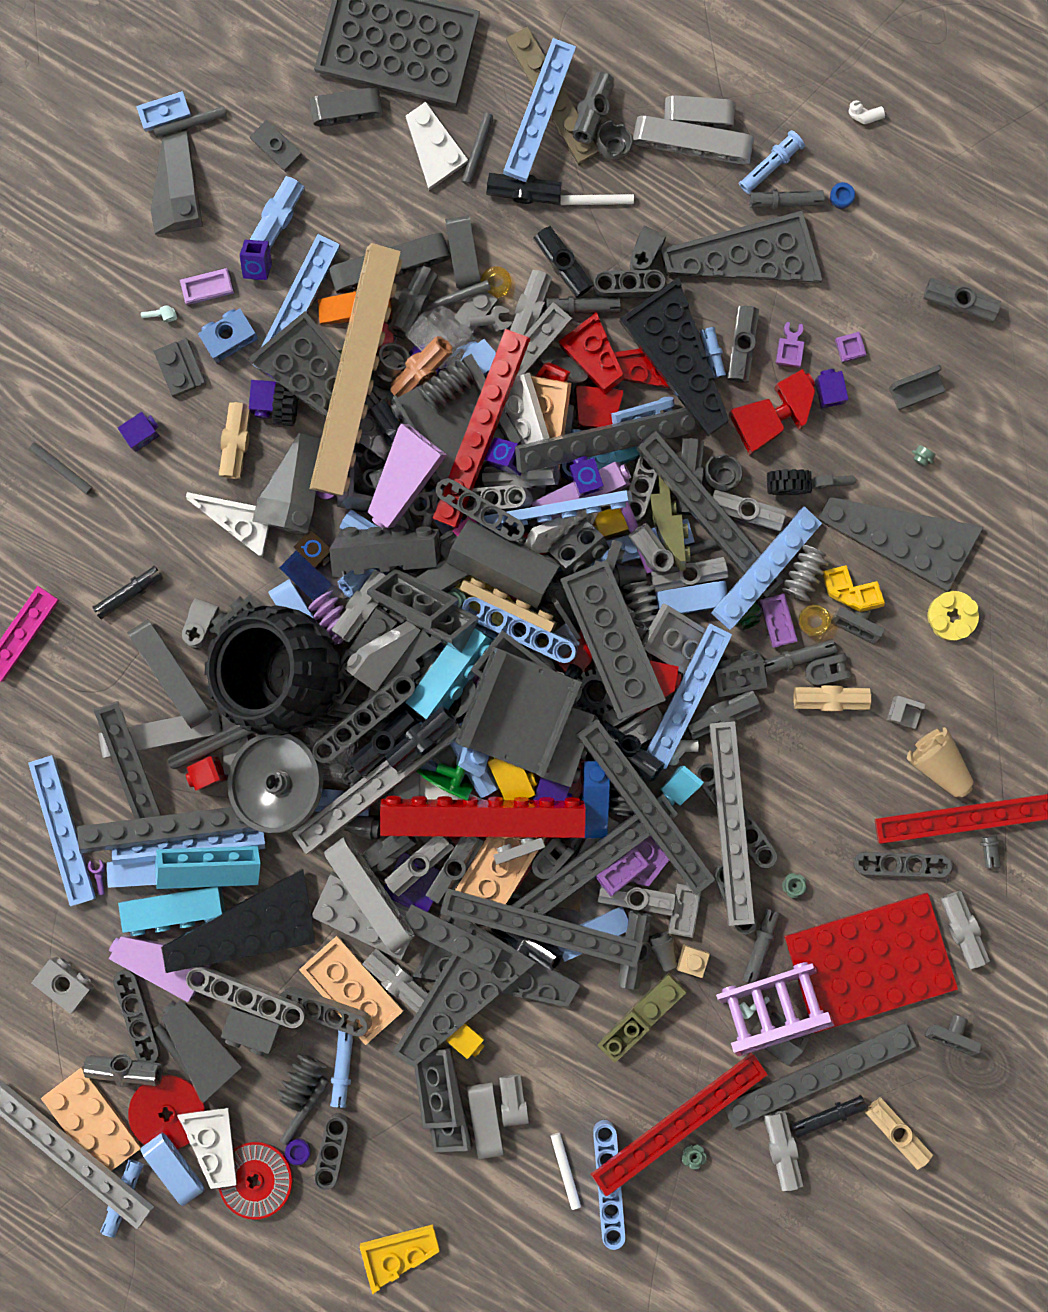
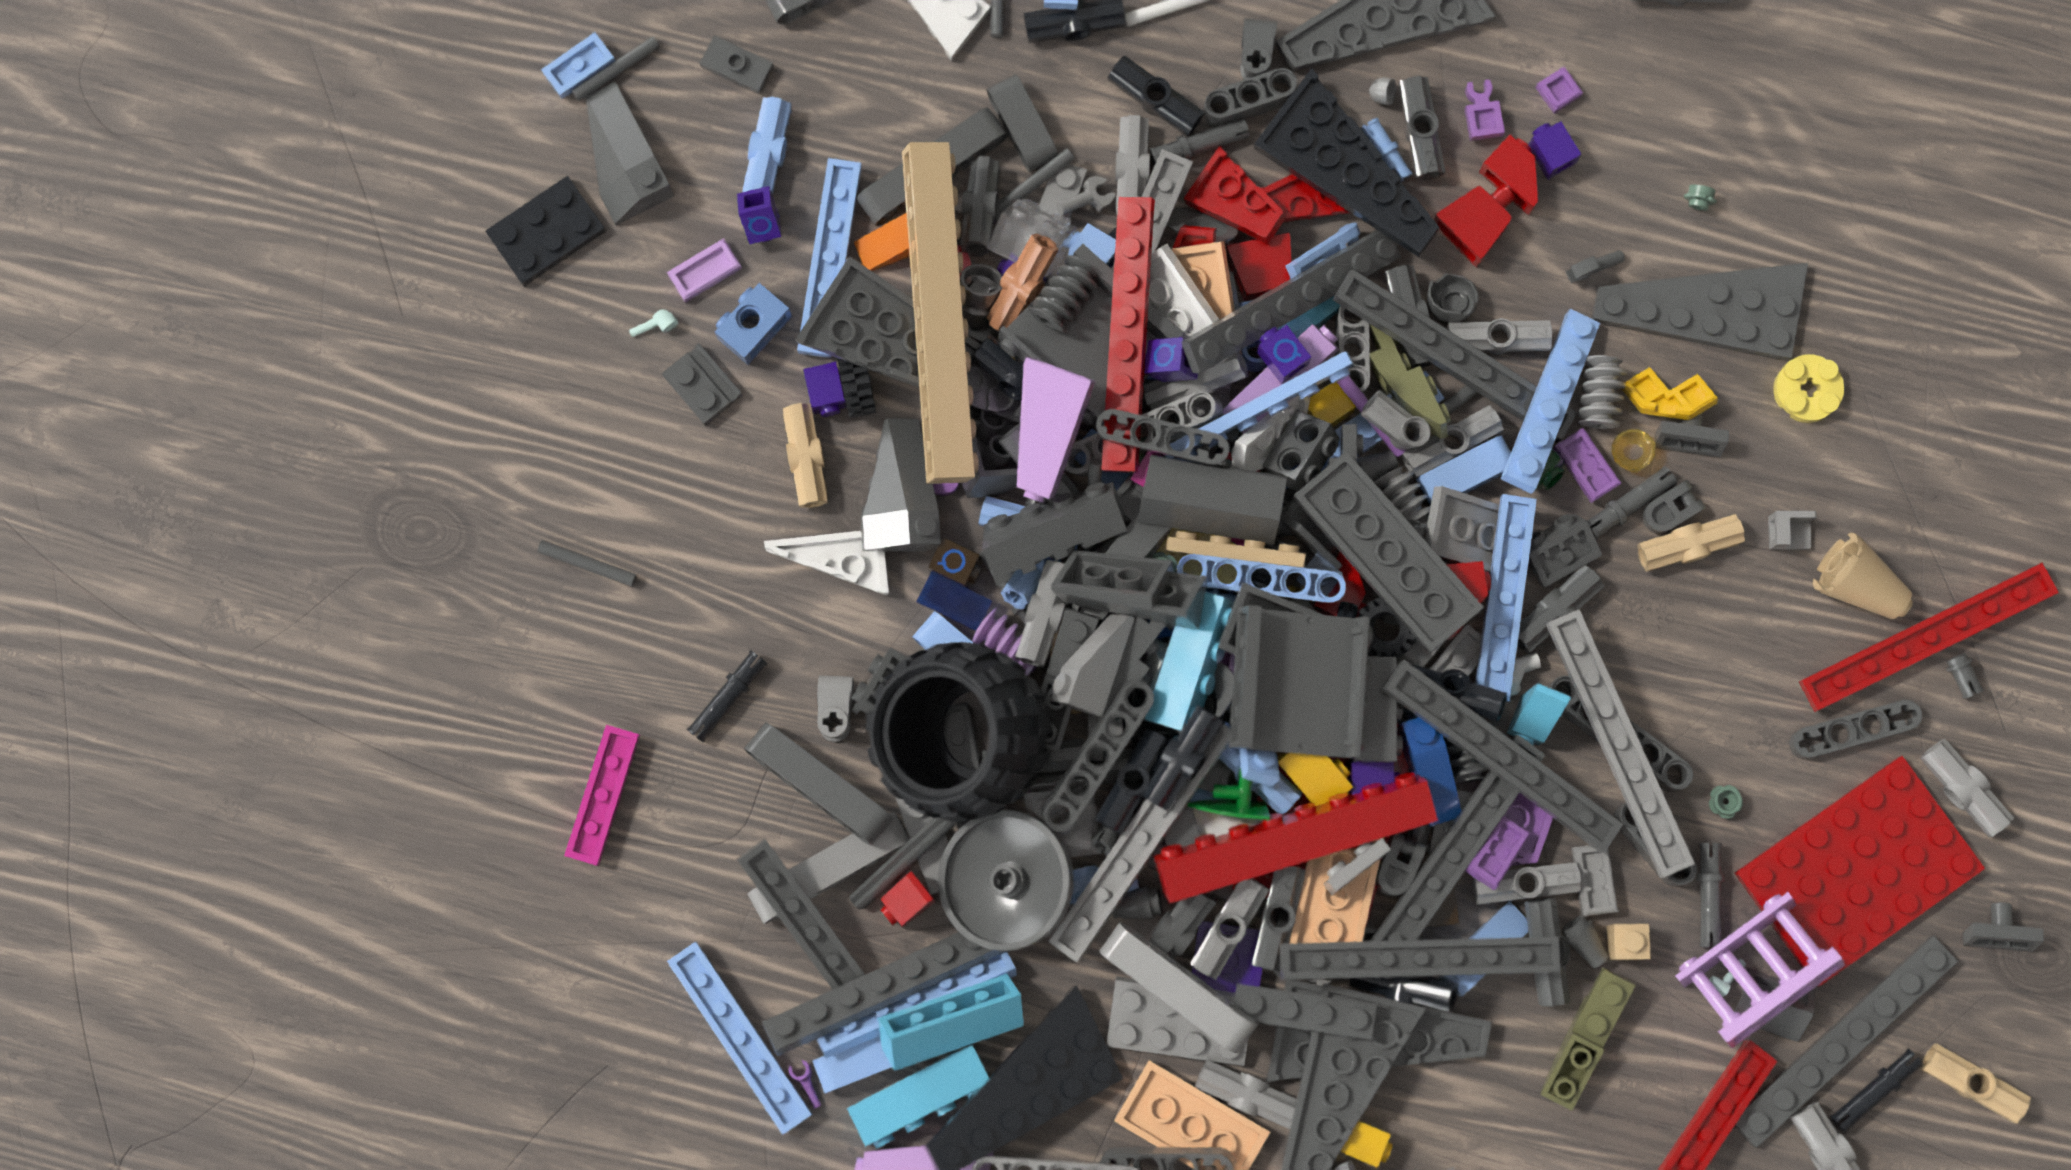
camera: 15 degrees left, 5 degrees down
(104, 223) = (545, 231): none -> black plate
(139, 431) = (676, 481): dark purple brick -> none
(507, 281) = (1089, 155): clear yellow piece -> none
(725, 309) = (1383, 90): none -> light grey hinge
(789, 482) = (1541, 283): black tyre -> none
(917, 387) = (1662, 114): dark grey panel -> none

